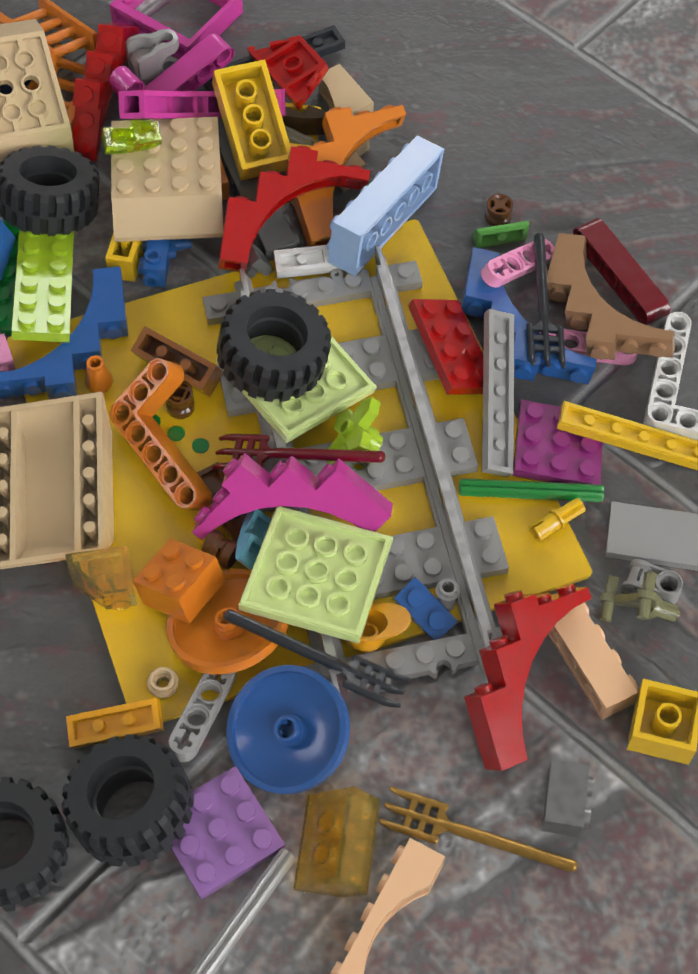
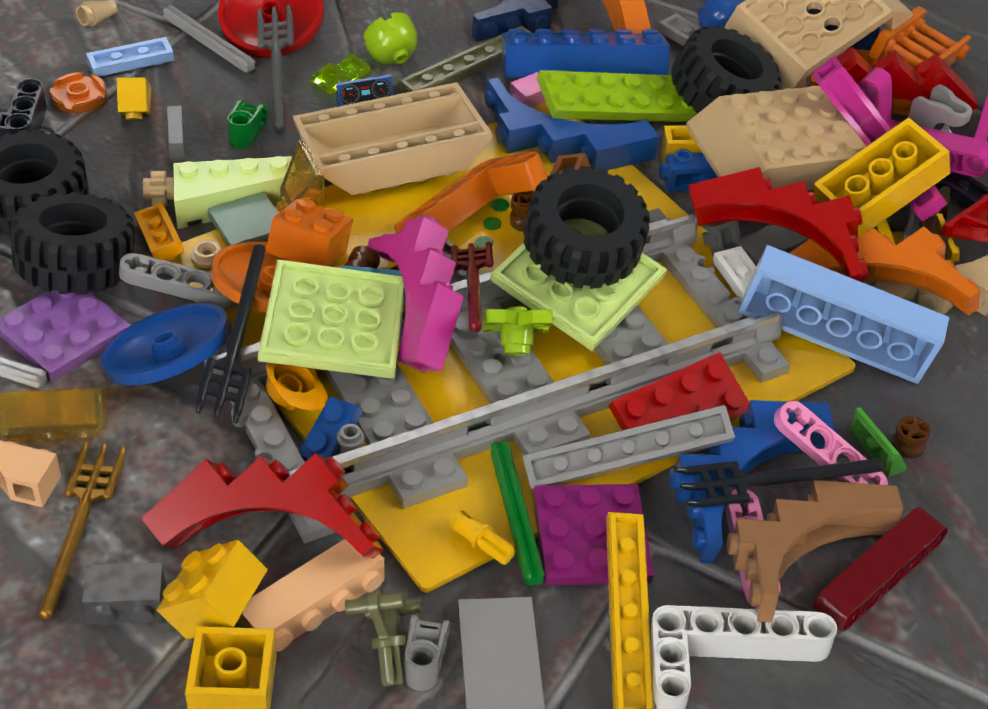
camera: 75 degrees right, 15 degrees down
(43, 717) = (158, 188): none -> tan gear
(60, 657) = (222, 181): none -> yellowish green wedge
(97, 375) = (531, 142): orange cone -> none
(120, 640) = (244, 219): none -> sand green tile
(139, 137) = (796, 91): clear neon green slope -> none
(589, 722) = (211, 588): none -> yellow brick

